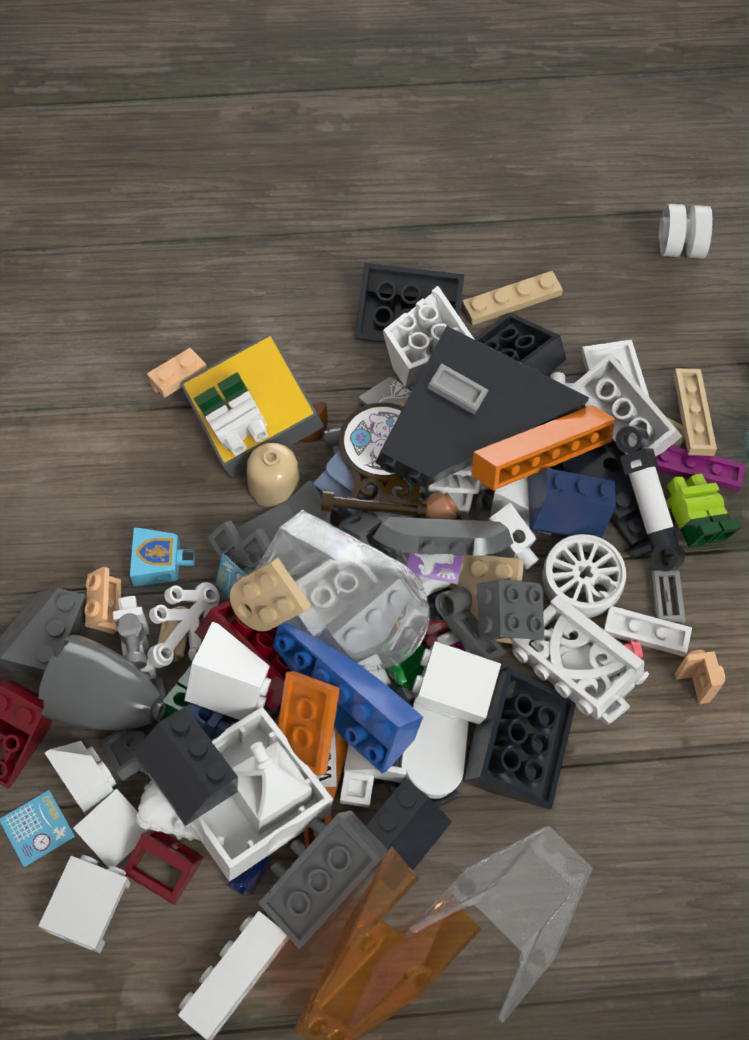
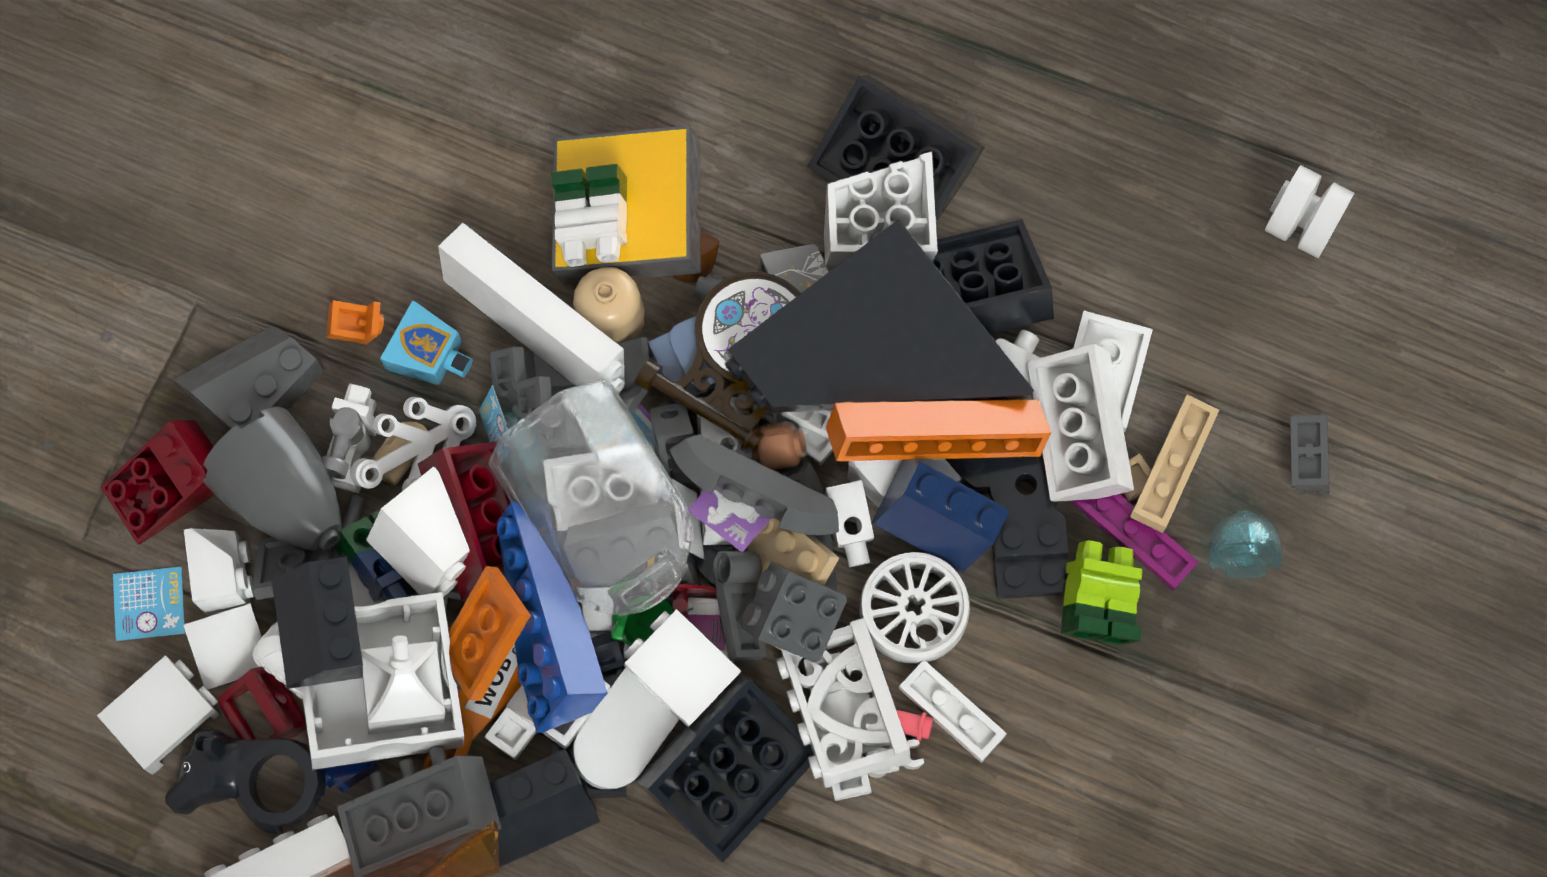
camera: 30 degrees right, 10 degrees up
(94, 559) = (354, 322): none -> orange bracket
(102, 600) = (341, 365): light nougat bracket -> none
(158, 917) = (229, 768): none -> black animal
(169, 375) = (559, 119): light nougat bracket -> none
(219, 496) = (529, 310): none -> white brick
(270, 595) = (508, 468): tan plate -> none
(457, 389) = (866, 310): light grey tile -> none
(512, 298) = (1036, 200): tan plate -> none
(641, 467) = (1048, 512): piece -> none
(675, 574) = (992, 709): light grey tile -> none
(705, 673) = (986, 803): light nougat bracket -> none

